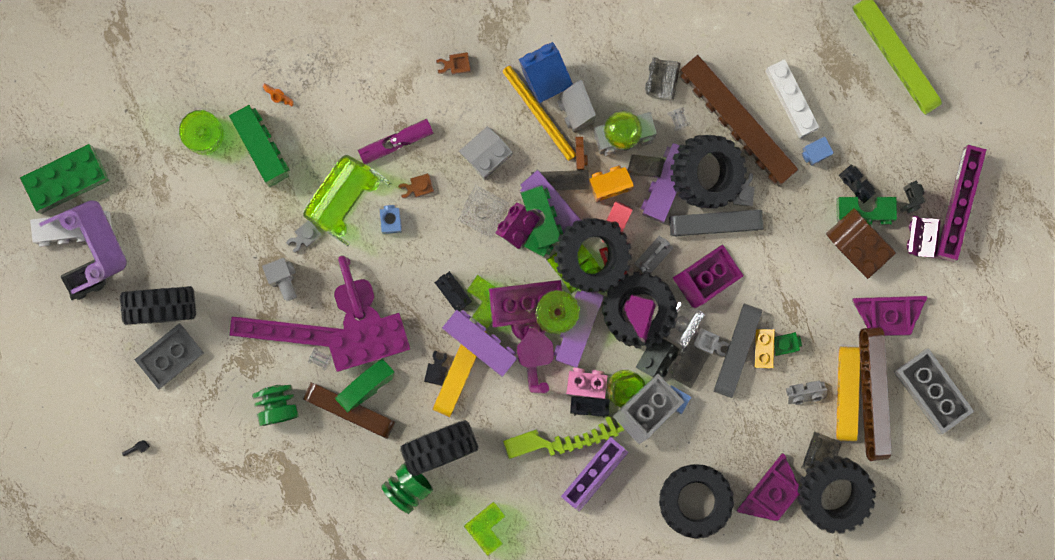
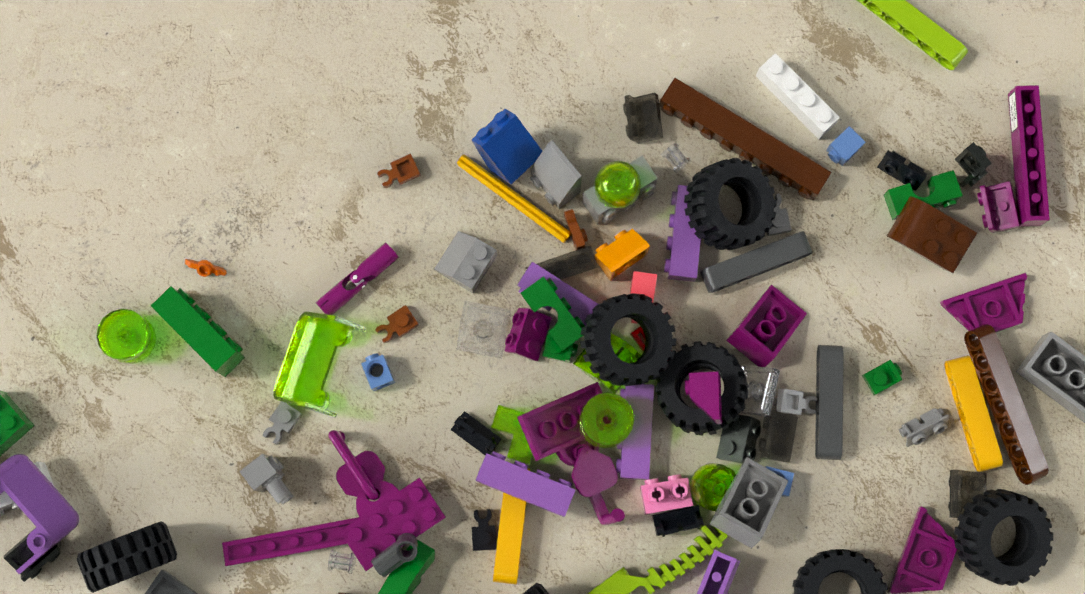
camera: 15 degrees left, 5 degrees down
(362, 366) = (394, 555): none -> dark grey piece
(646, 166) = (655, 220): clear smoke plate -> none
(654, 255) = (696, 320): light grey hinge -> none
(764, 348) = (860, 390): yellow hinge -> none

